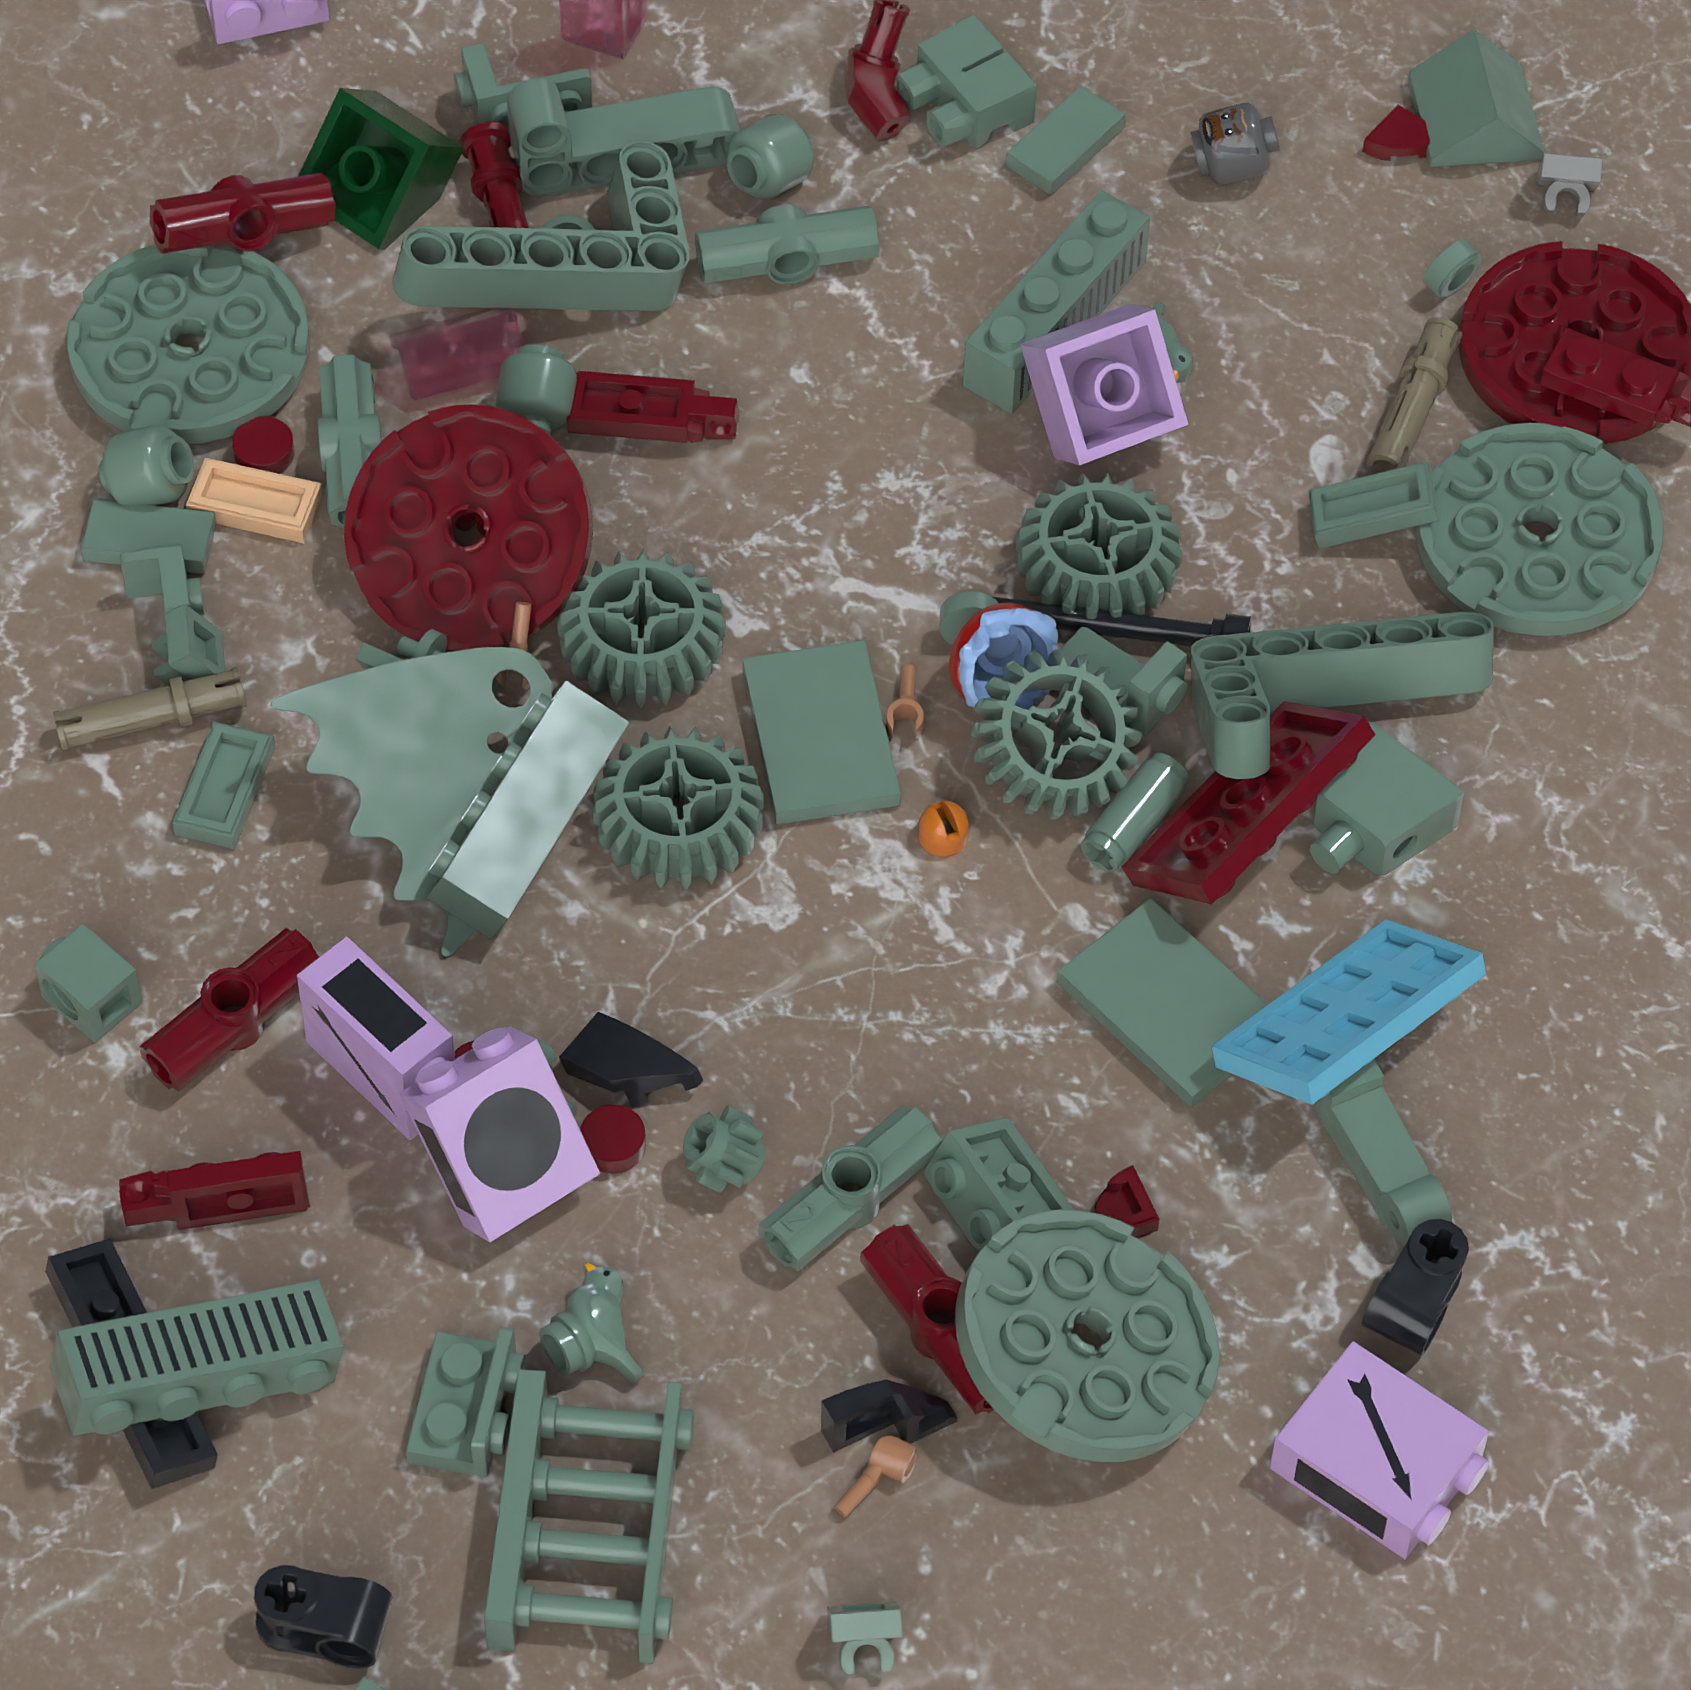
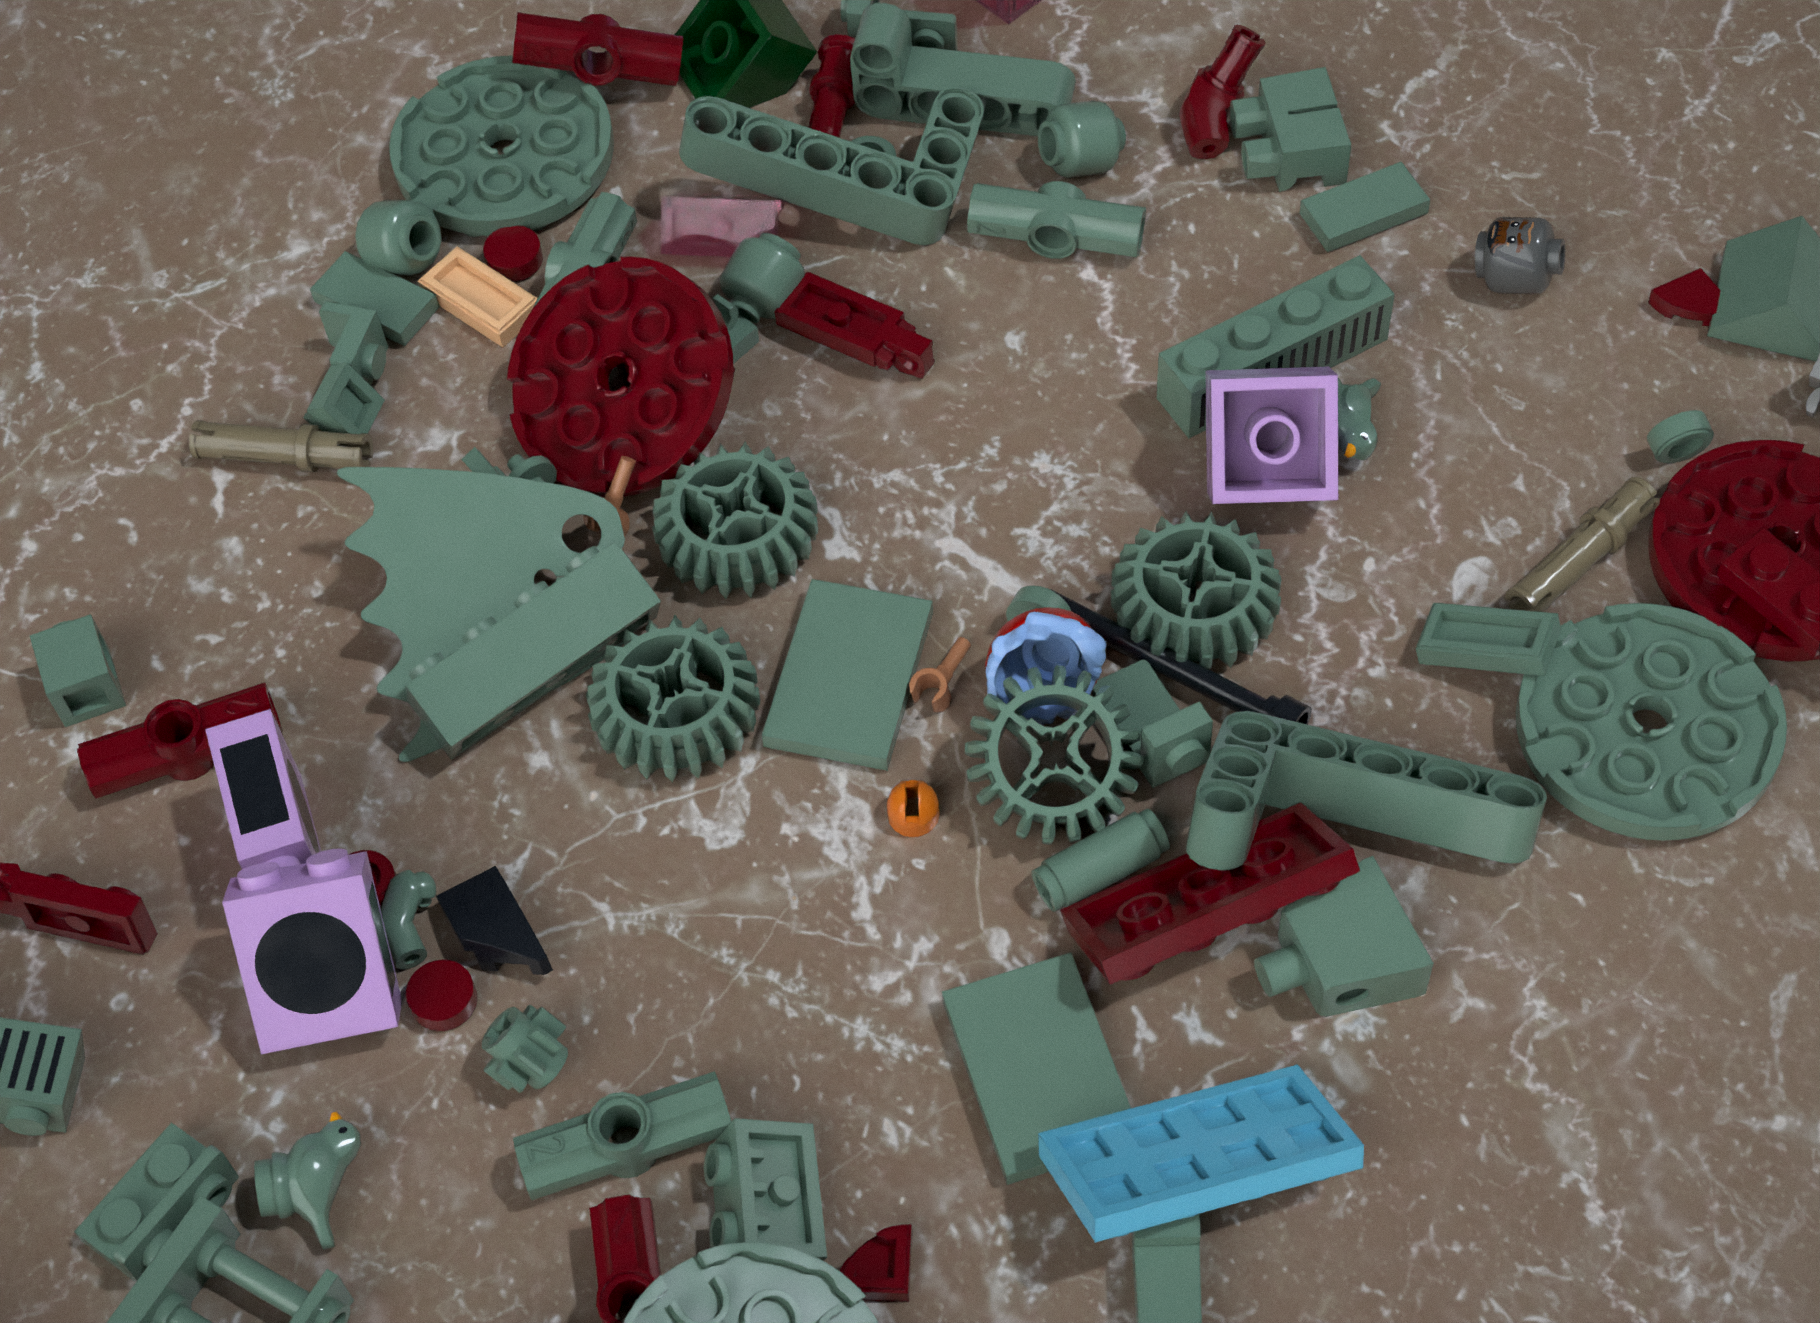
camera: 30 degrees right, 0 degrees up
(224, 785) = (305, 535): sand green tile -> none

